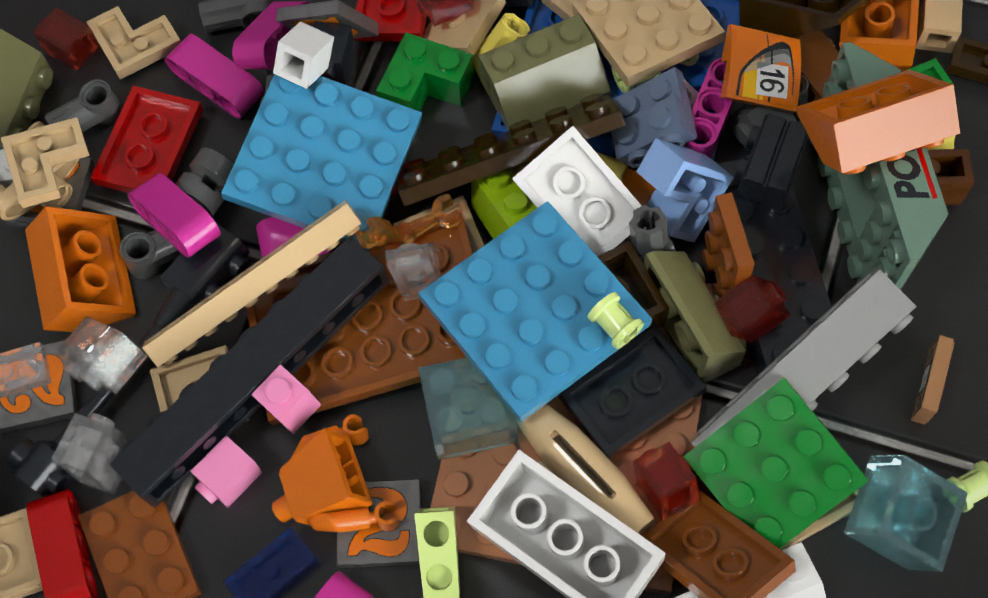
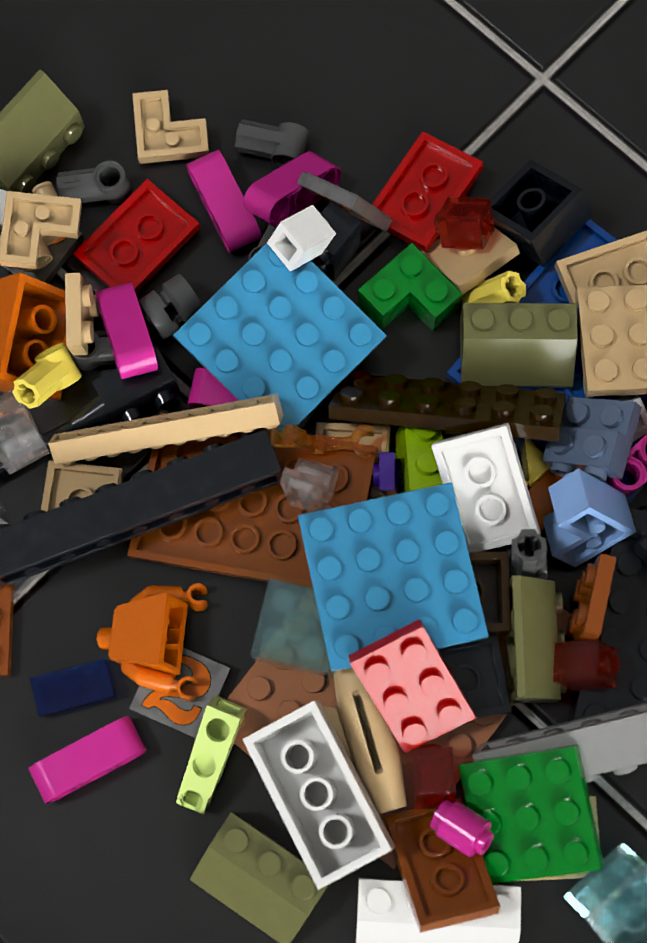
camera: 25 degrees right, 10 degrees up
(66, 38) = (107, 101): clear red brick -> none
(114, 289) = (51, 373): none -> light yellow piece
(121, 217) = (80, 313): none -> tan plate
(225, 473) = (71, 584): bright pink brick -> none
(286, 399) = (148, 549): bright pink brick -> none
(481, 230) = (387, 474): none -> dark purple plate
(604, 398) = (412, 686): none -> plate
(615, 320) = (451, 627): yellowish green bush -> none
(719, 509) = (462, 828): none -> dark pink brick

